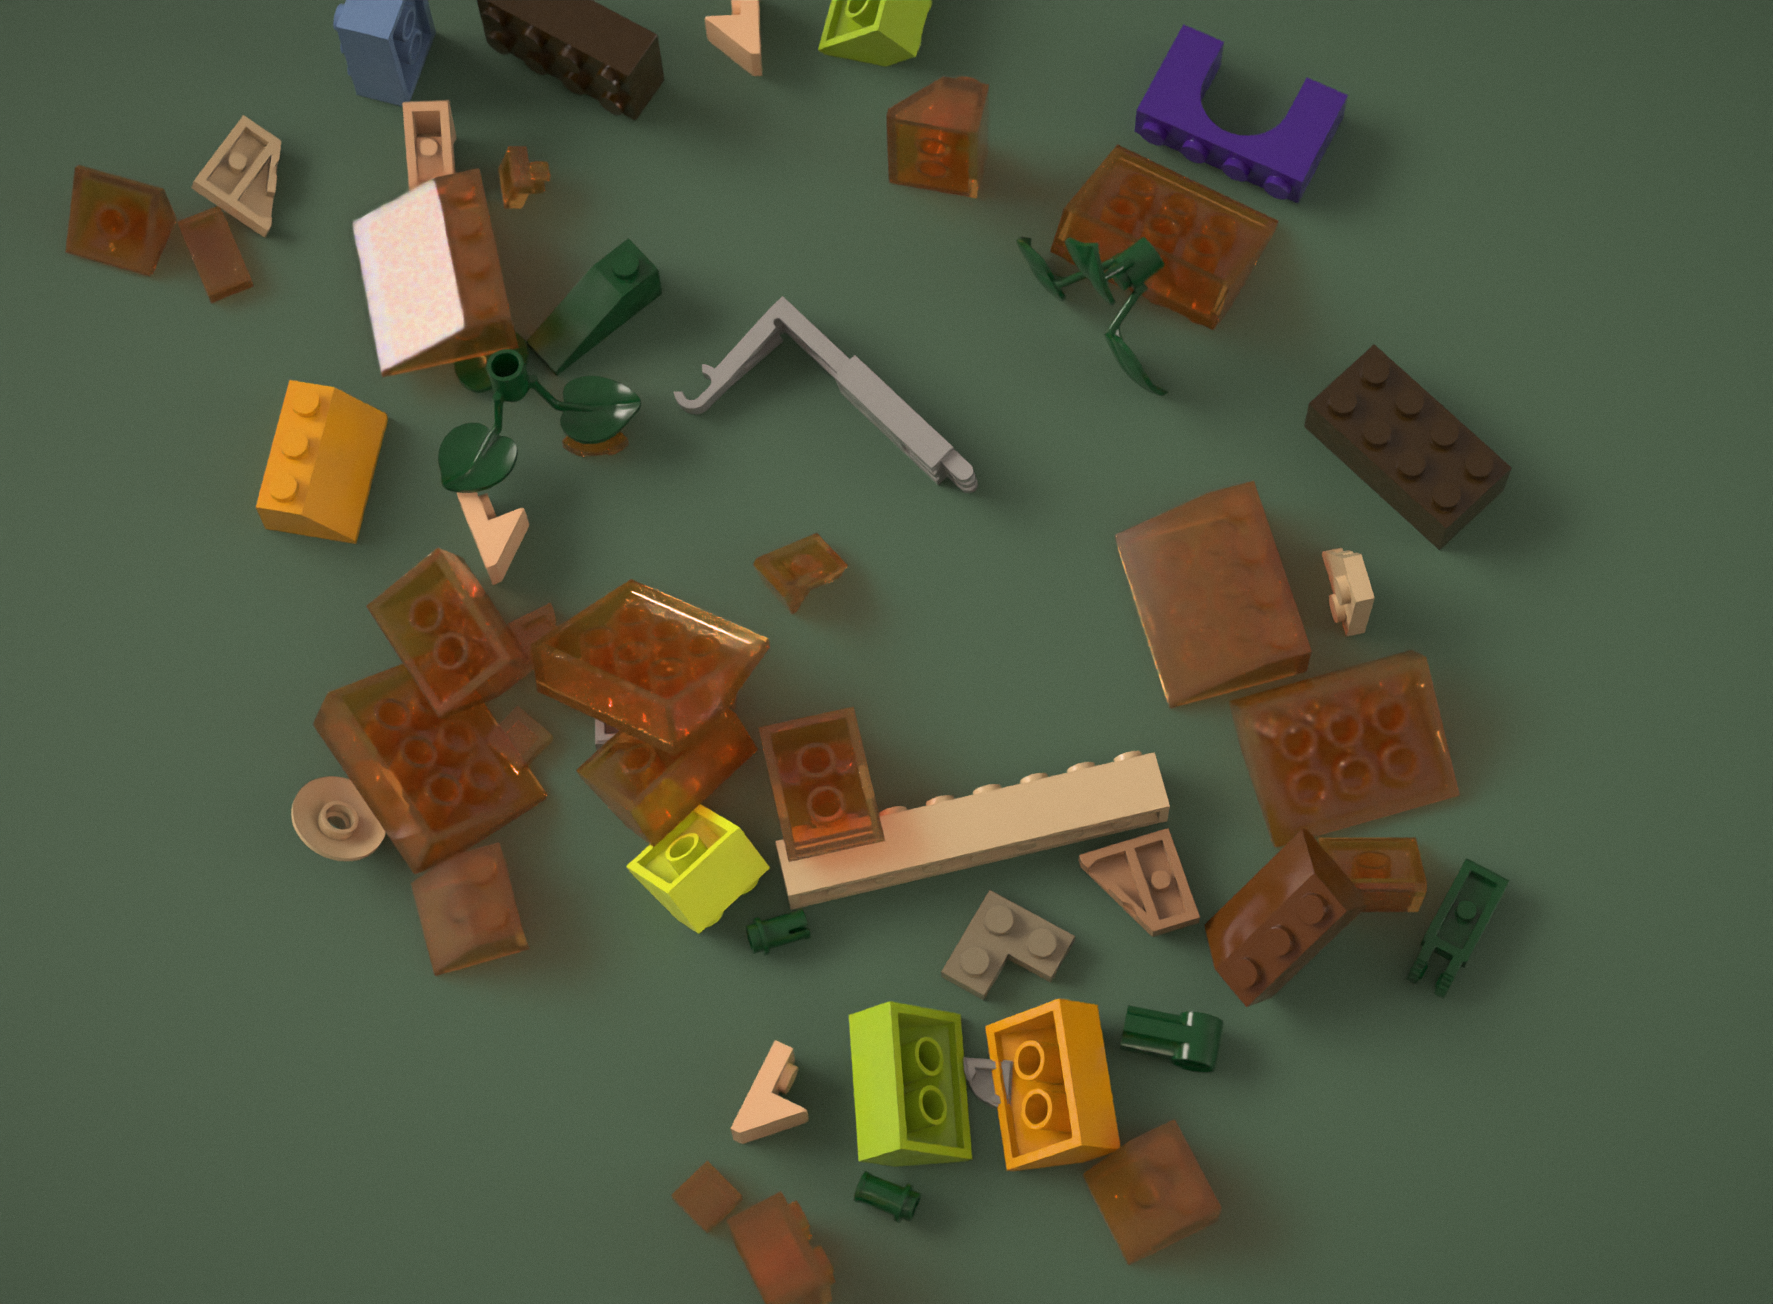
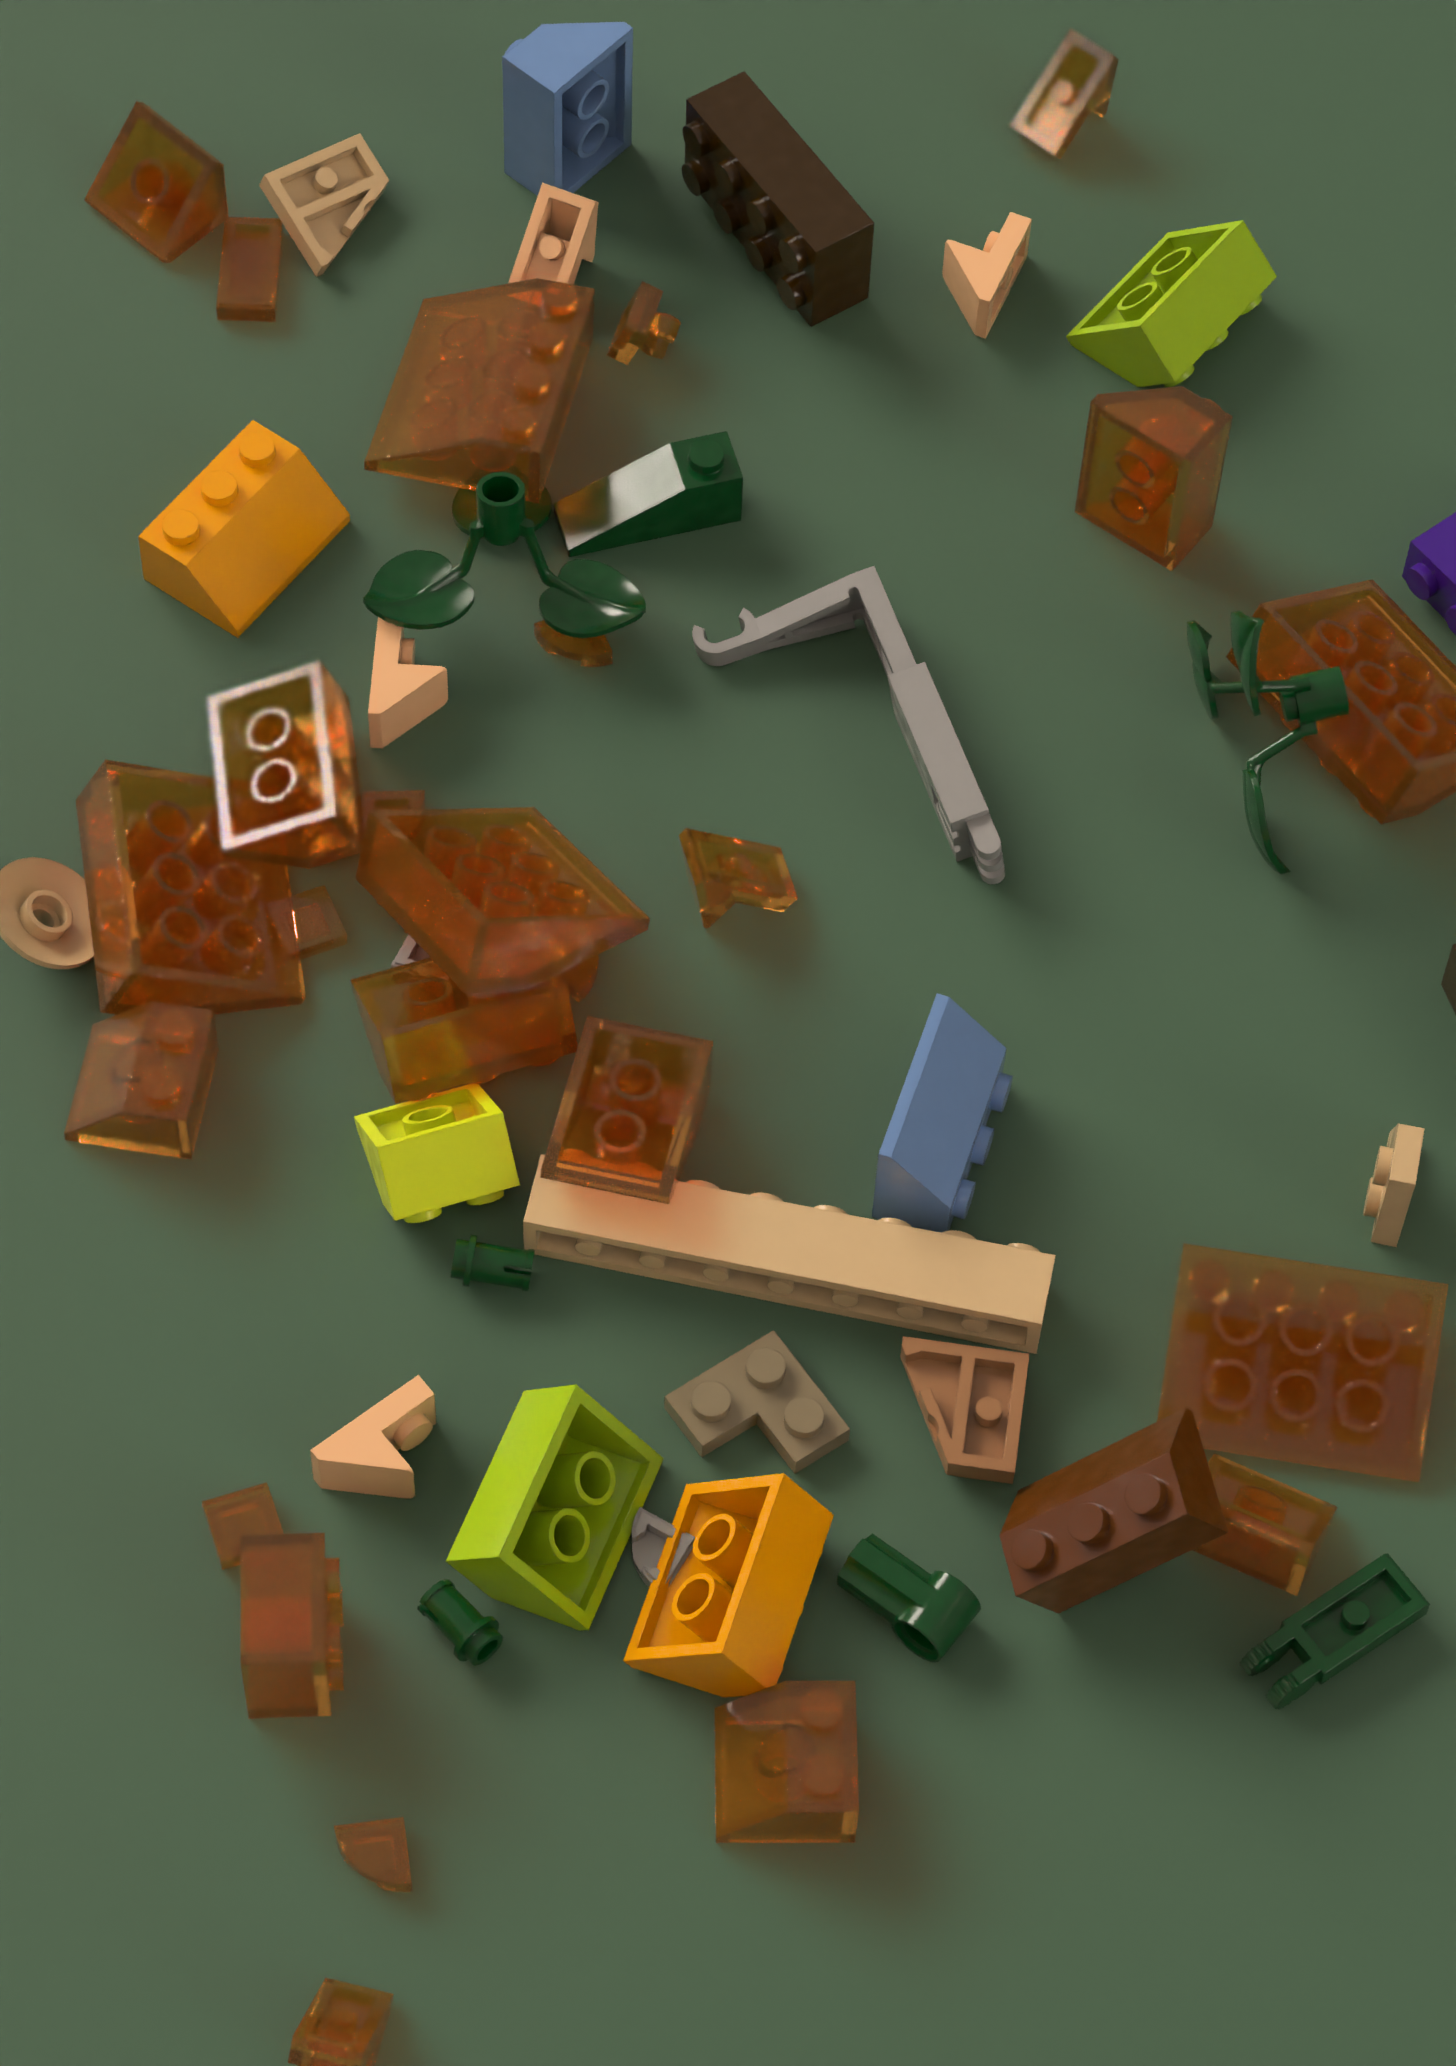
camera: 20 degrees right, 10 degrees down
(1031, 690) = (941, 1121): none -> medium blue slope
(1214, 596) = (1225, 1121): clear orange slope -> none

